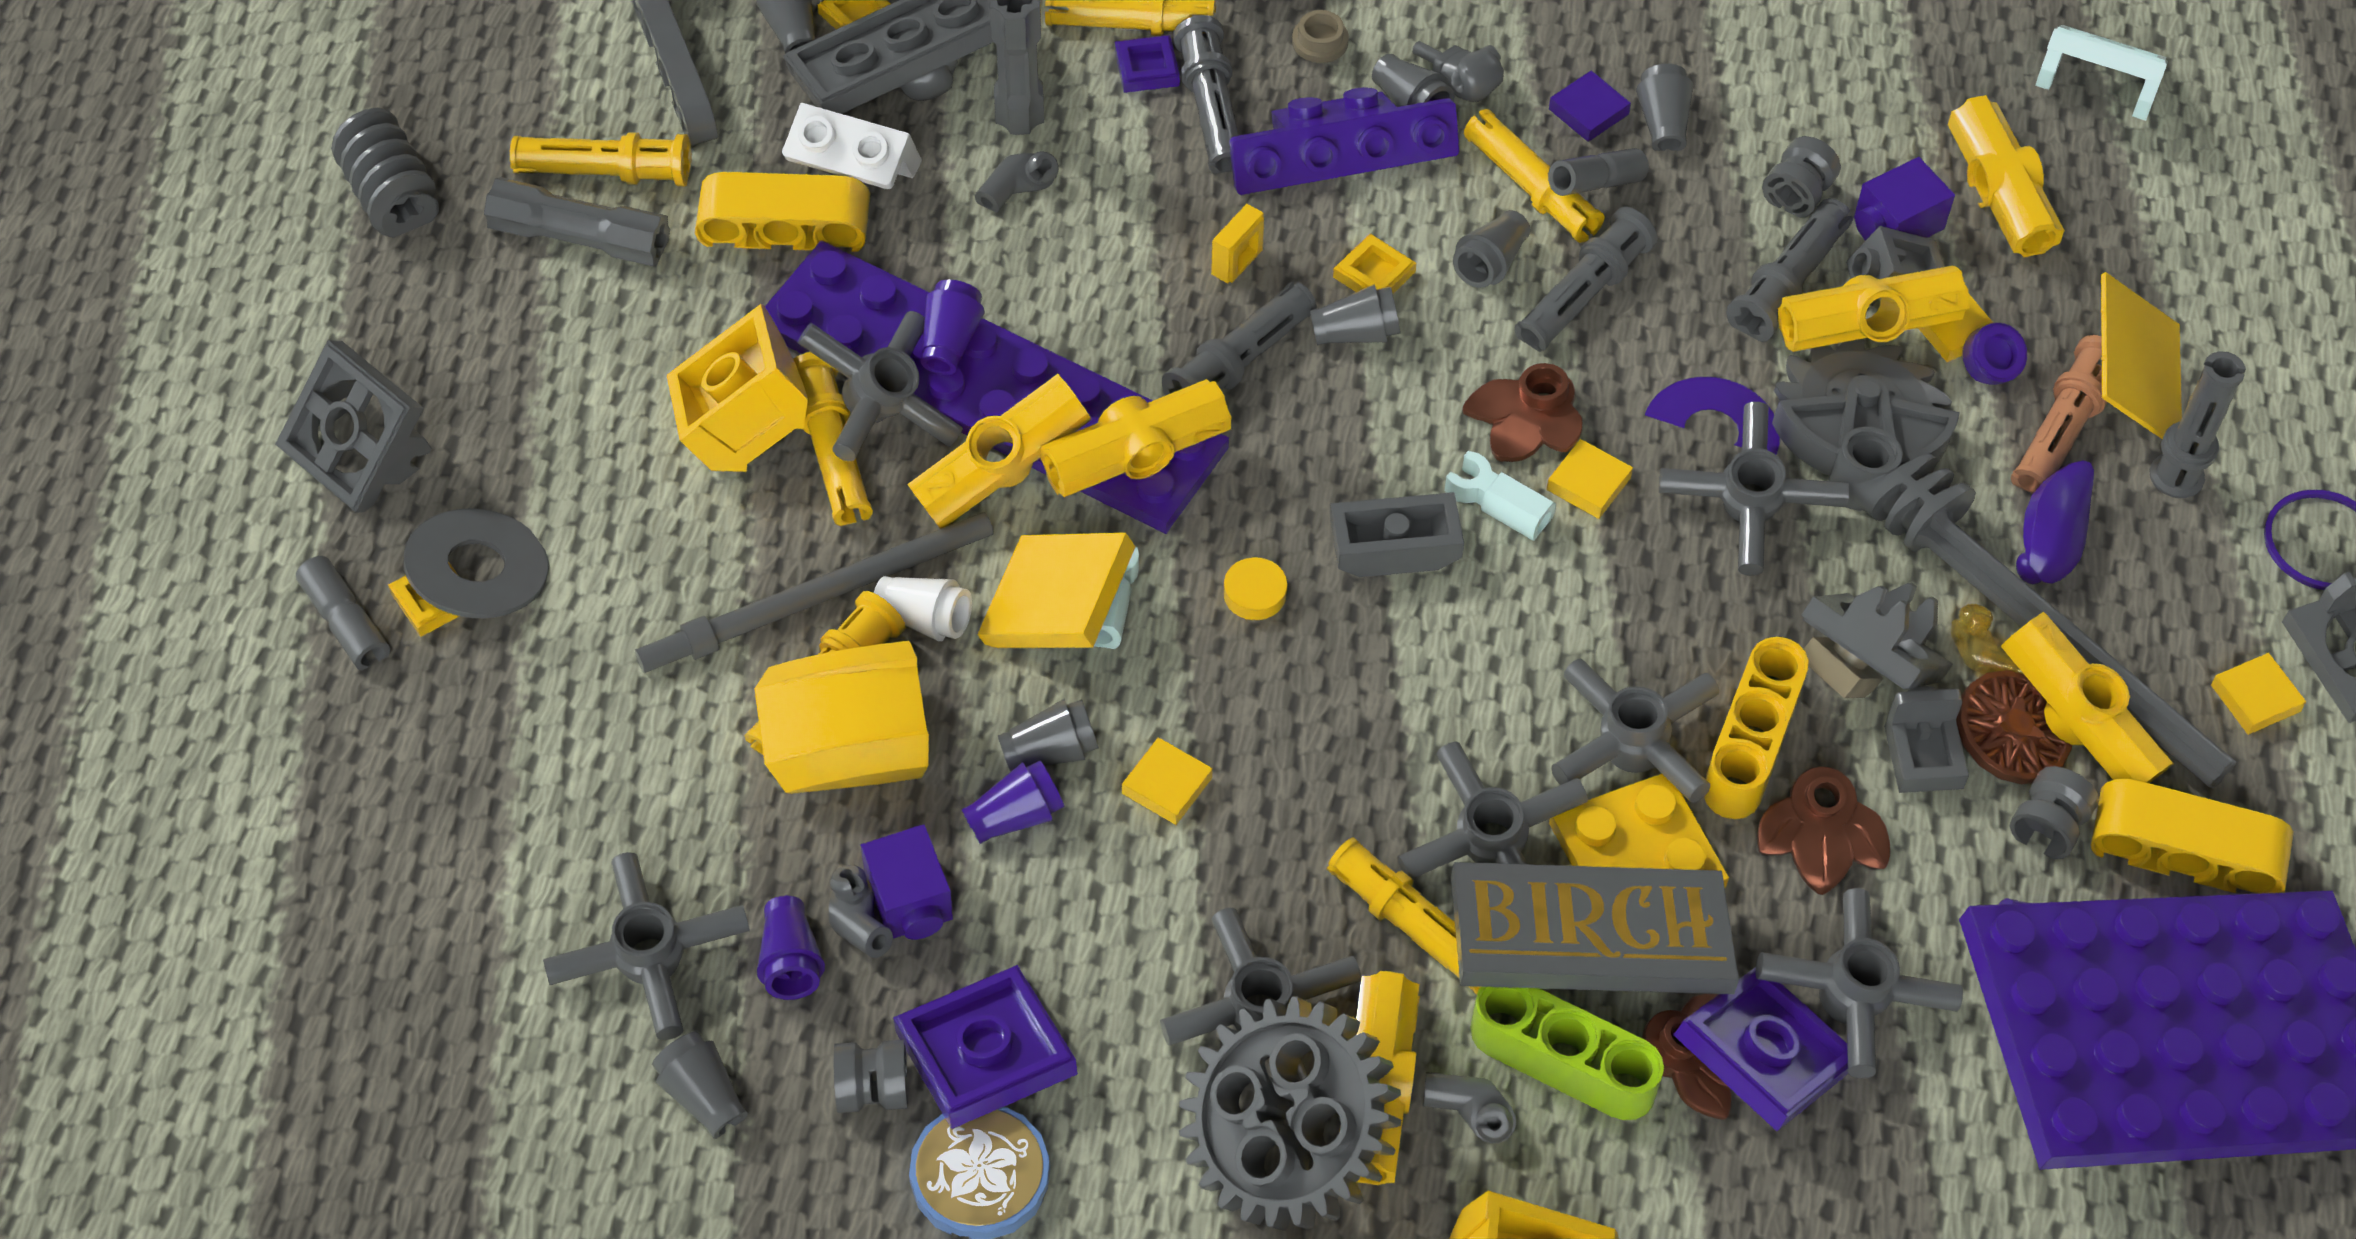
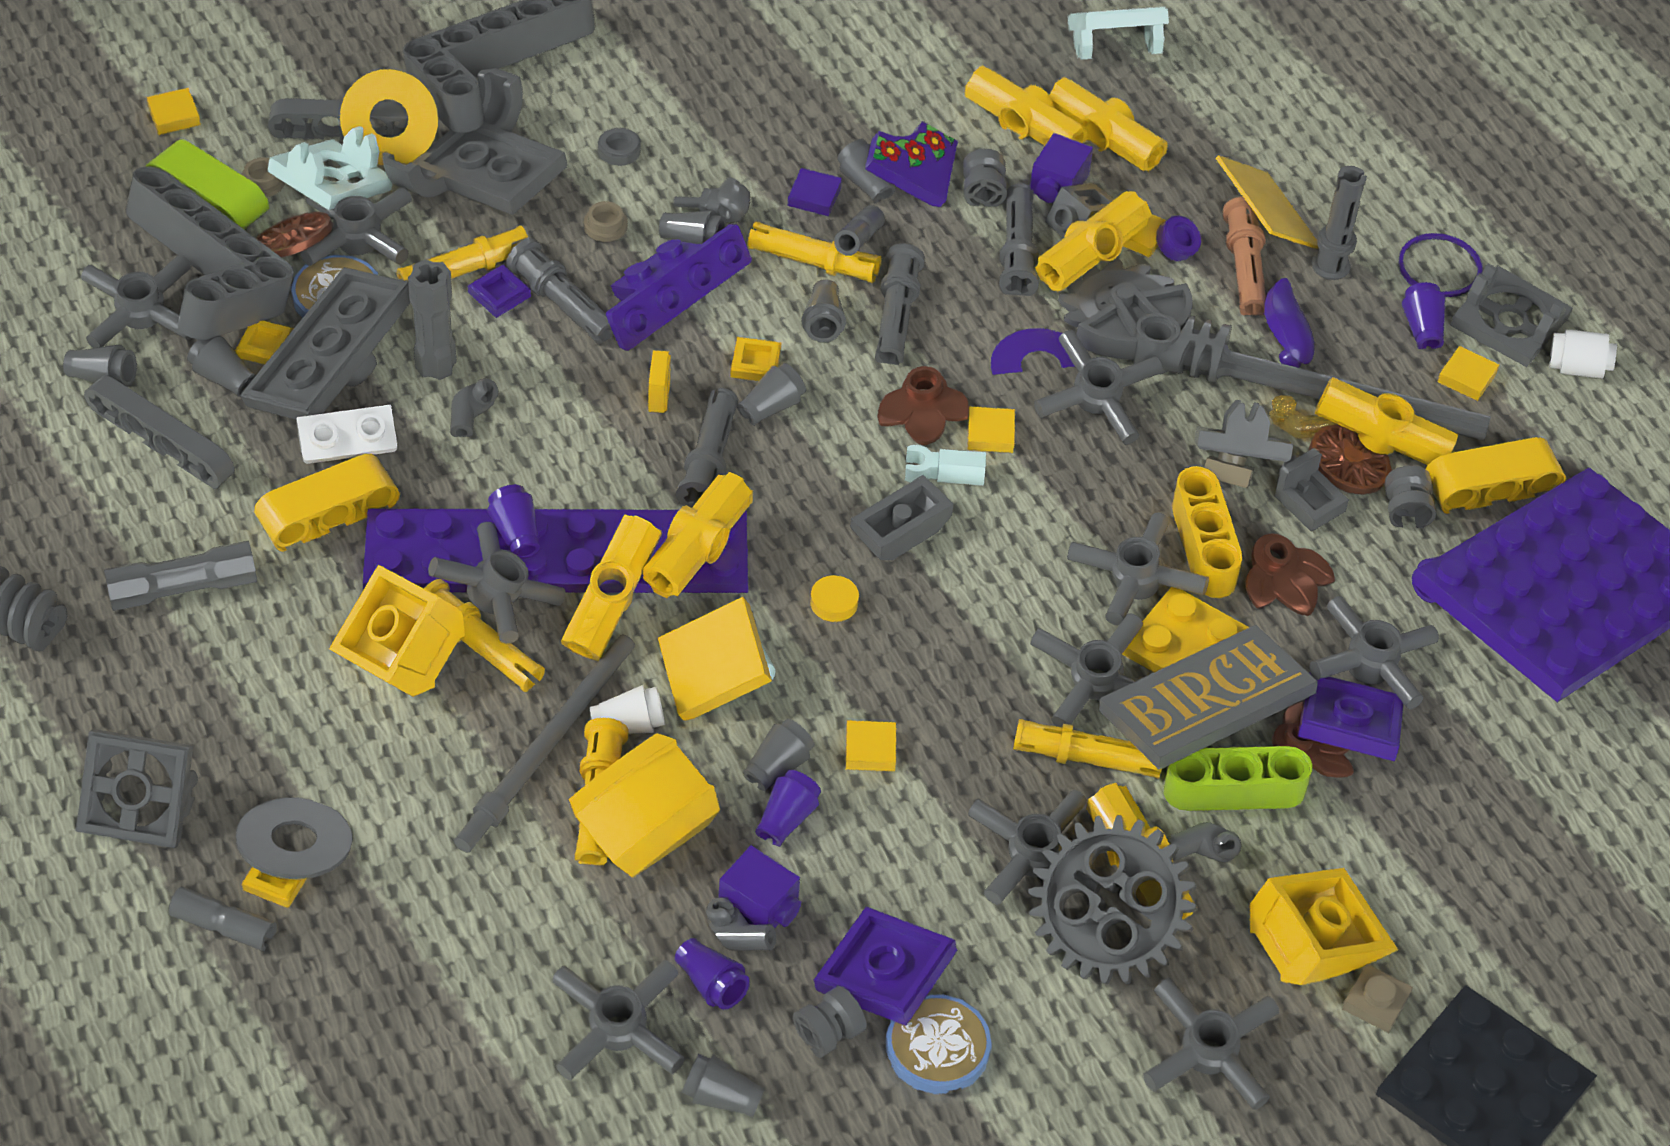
camera: 35 degrees left, 5 degrees down
(628, 157) = (184, 515): yellow pin -> none
(1728, 122) = (915, 162): none -> dark purple tile
(1913, 115) = (1021, 110): none -> yellow piece
(2252, 592) = (1425, 314): none -> dark purple cone

